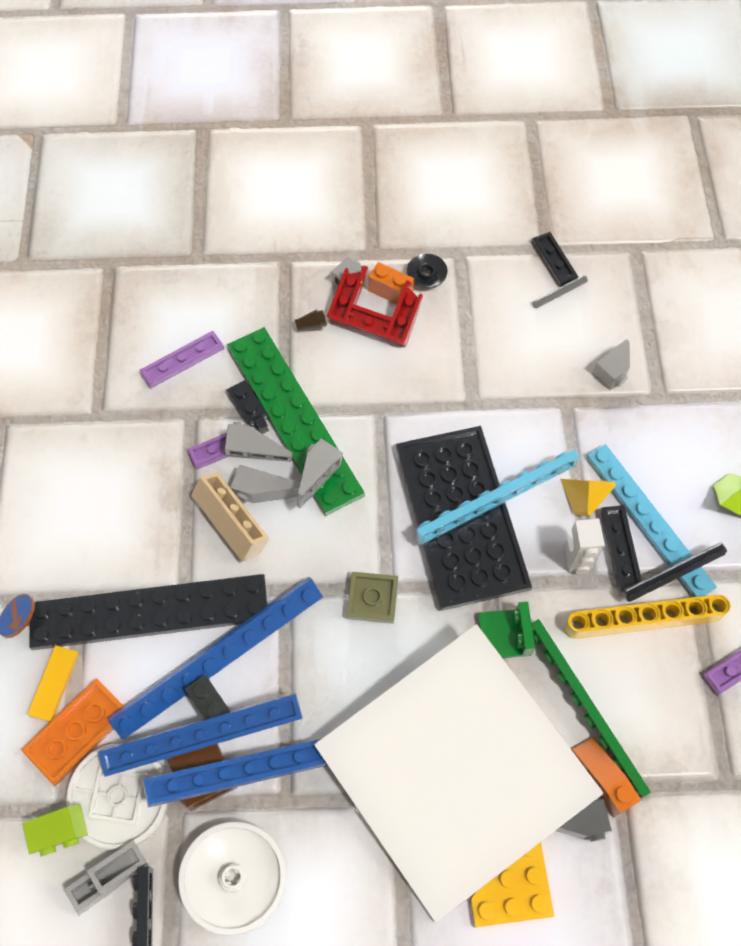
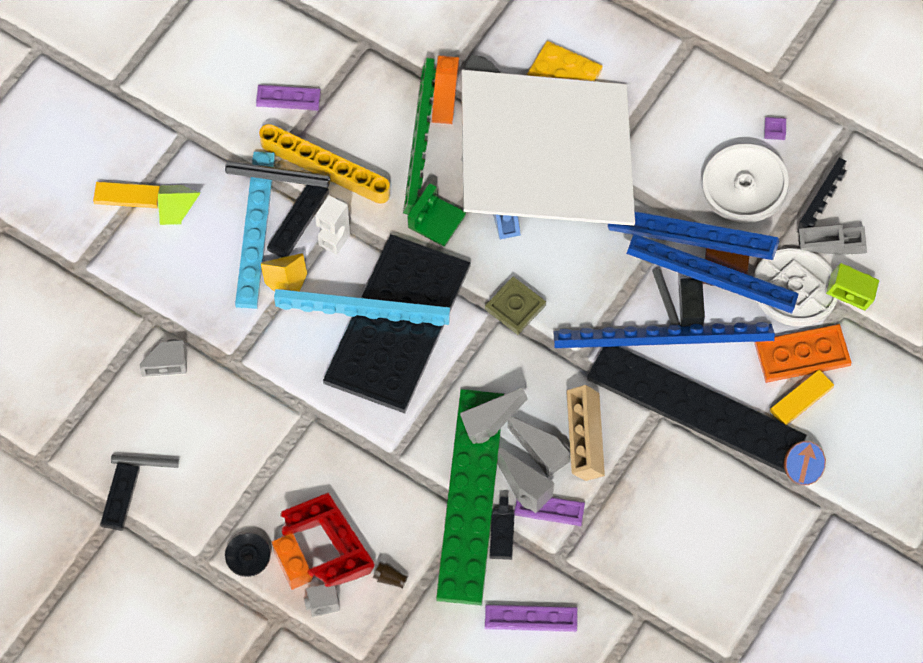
camera: 145 degrees left, 0 degrees up
(230, 691) = (666, 297): none -> dark grey bar

